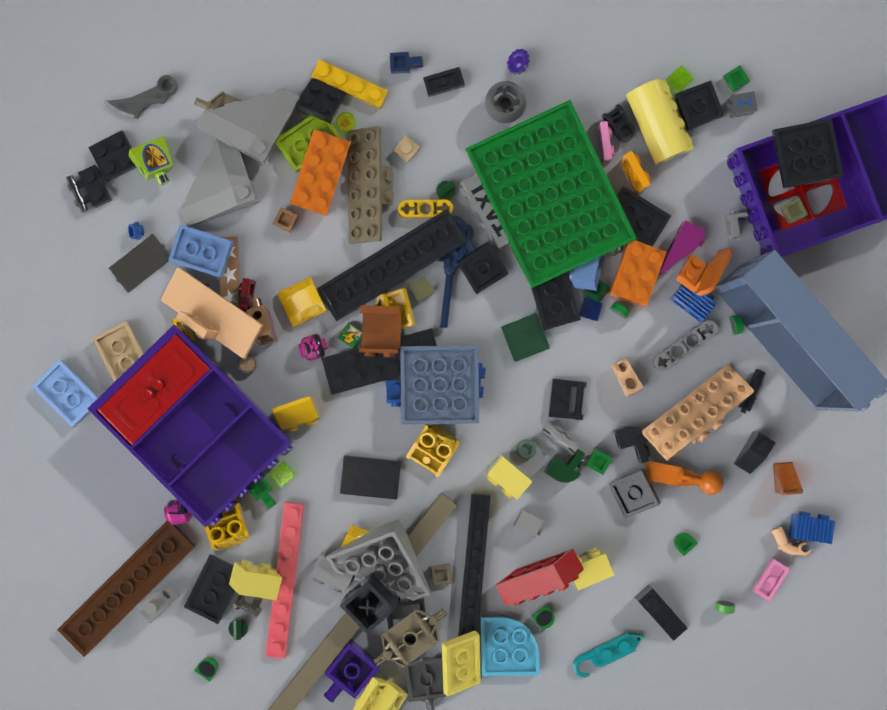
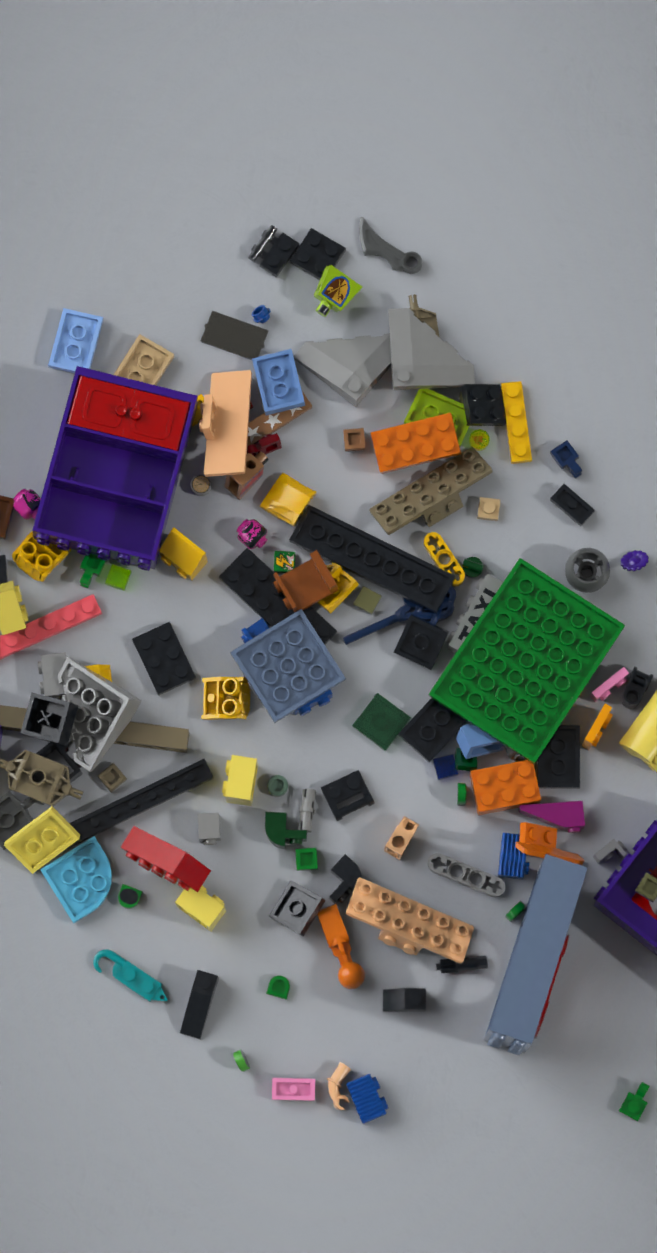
camera: 65 degrees right, 10 degrees down
(786, 479) = (399, 1045): clear orange slope -> none

